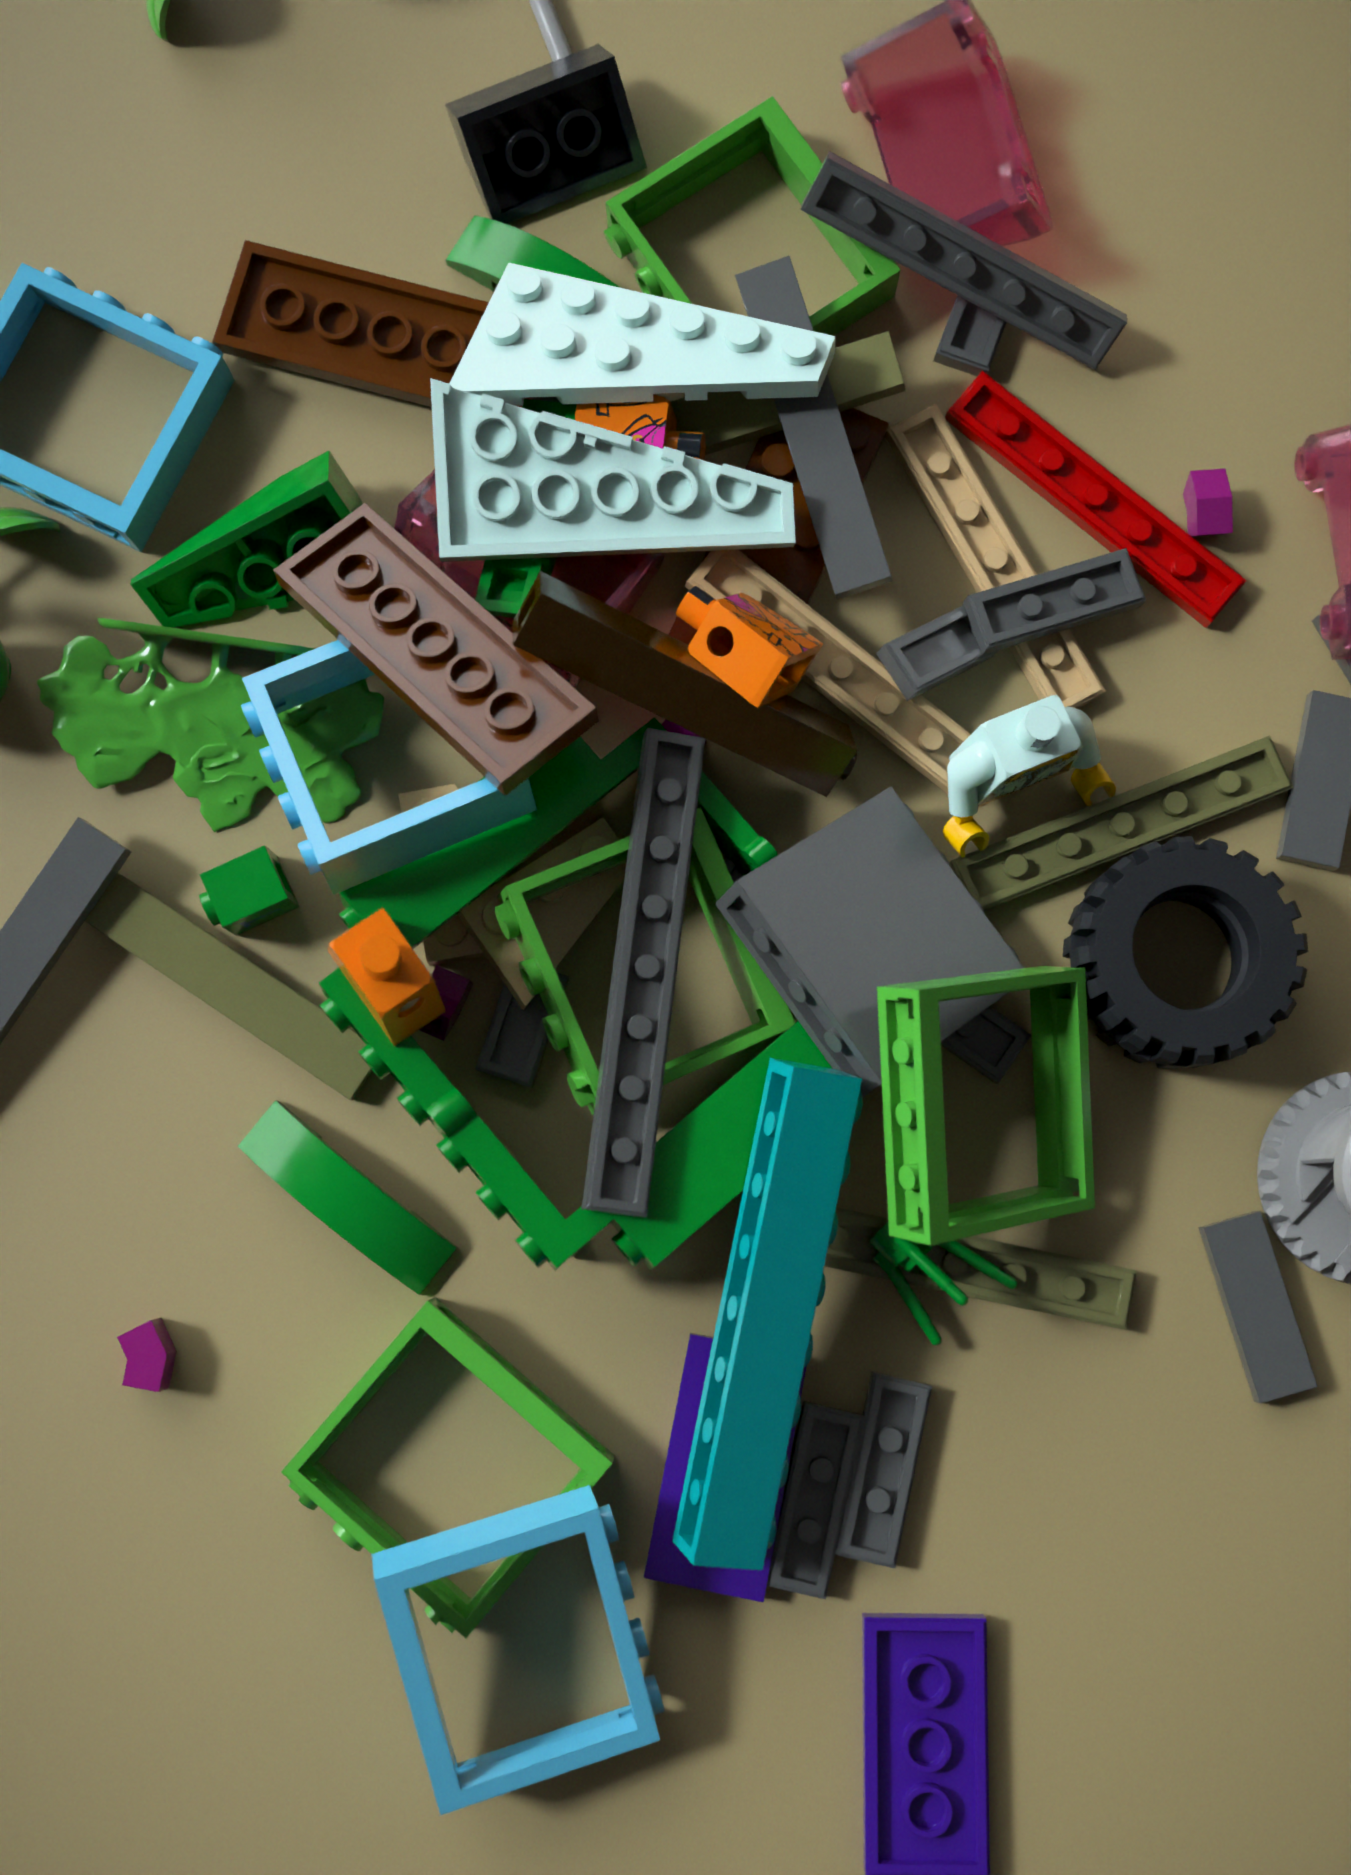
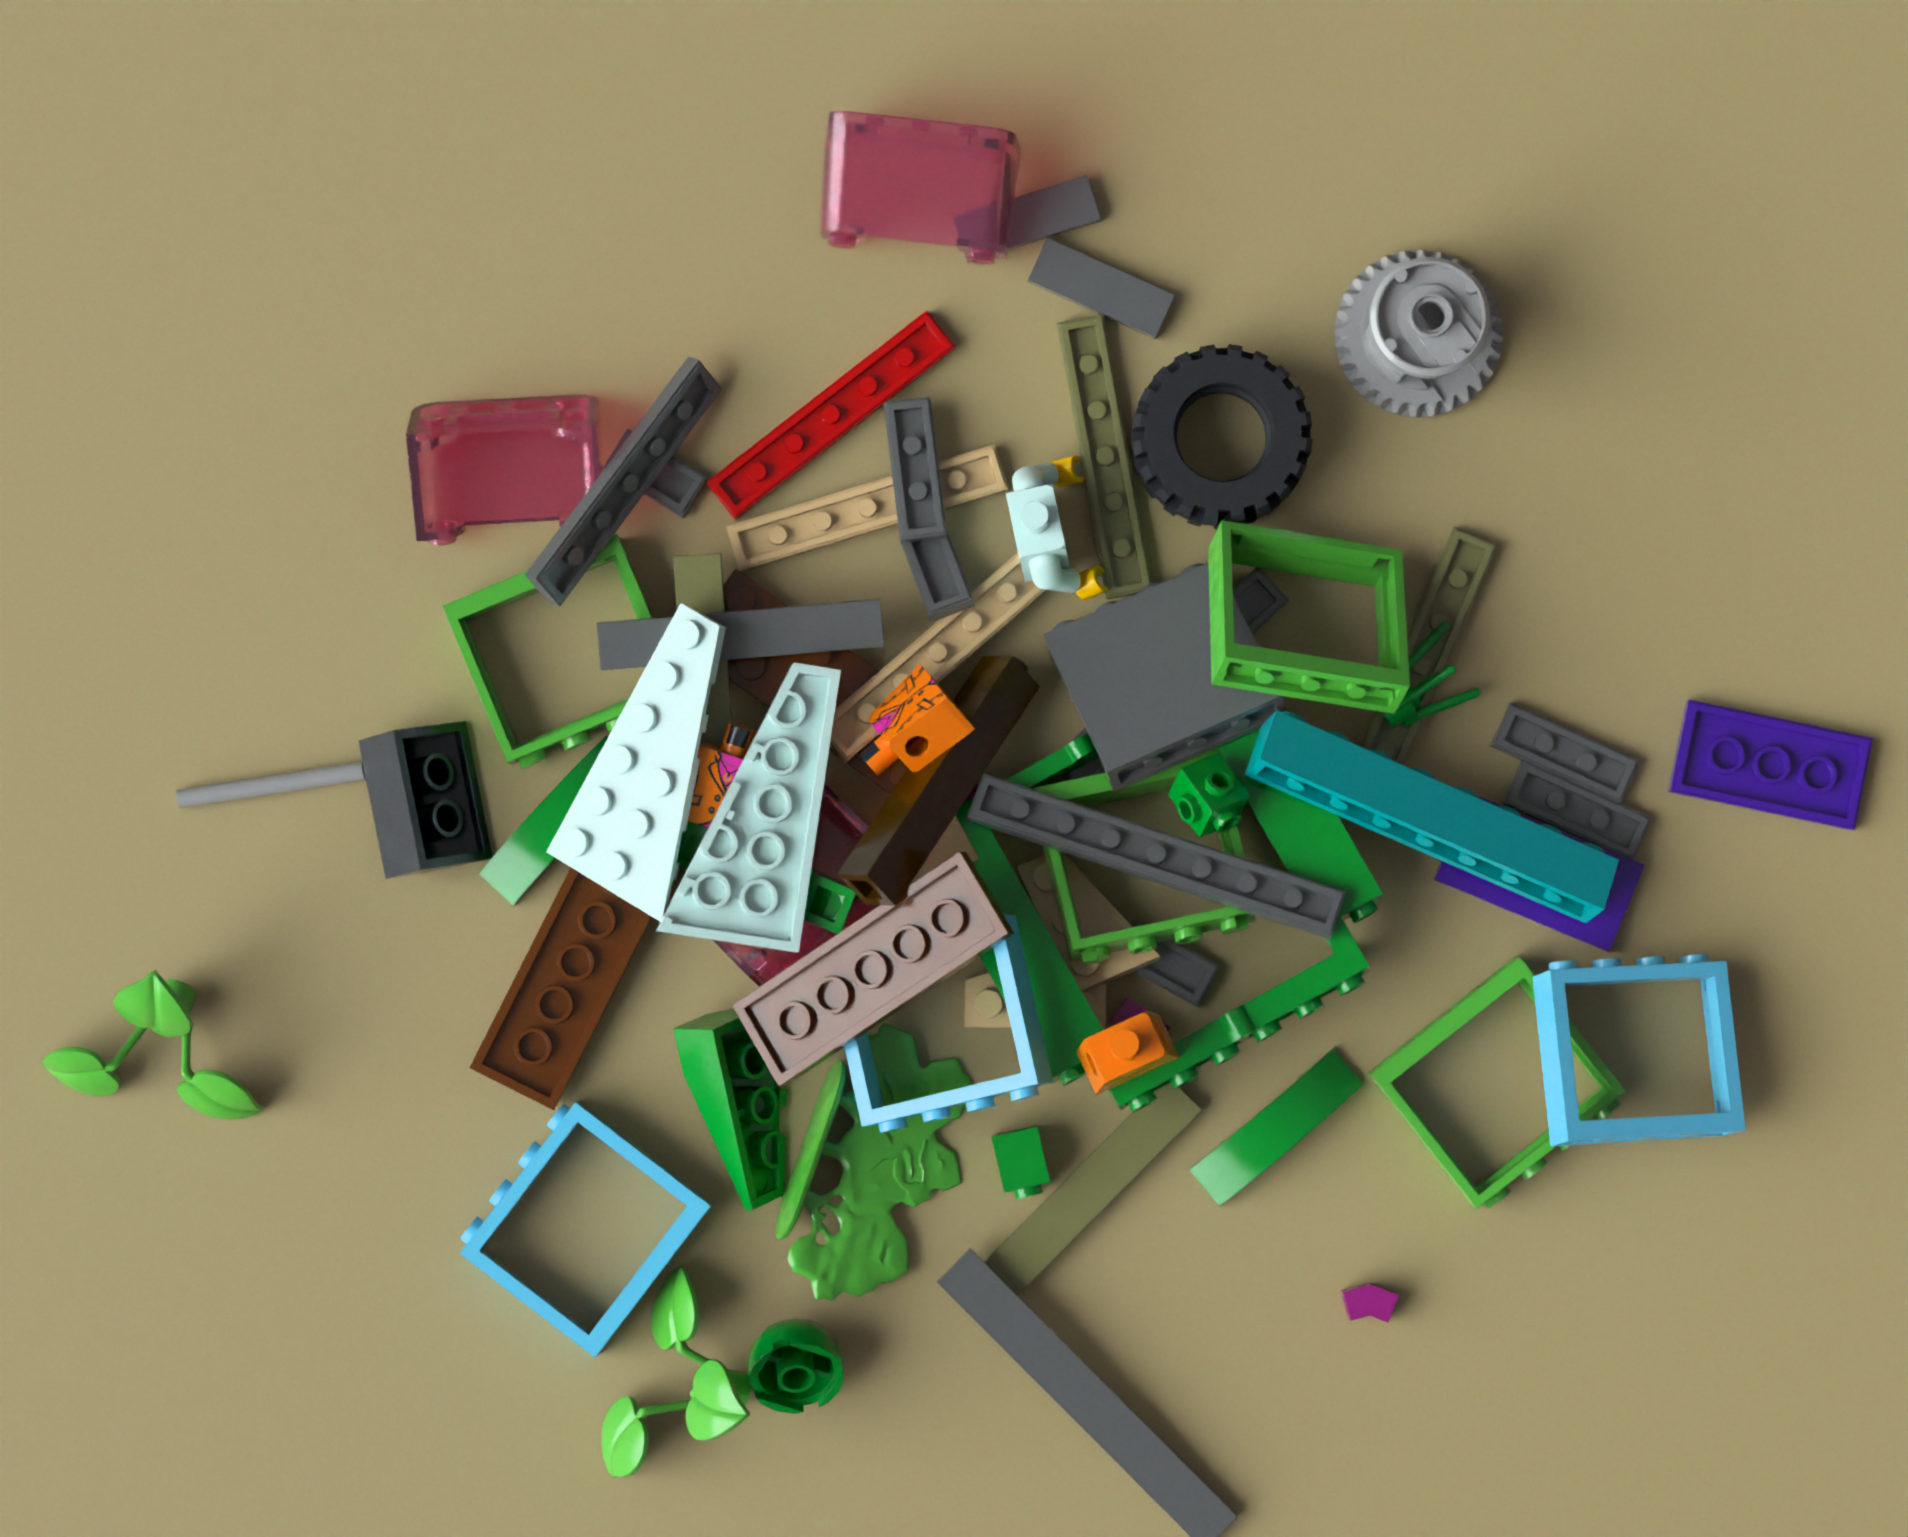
camera: 80 degrees left, 5 degrees up
(734, 1019) = (1209, 795): none -> green brick
(1208, 502) = (858, 326): magenta piece -> none
(1257, 1307) = (1499, 440): dark grey tile -> none

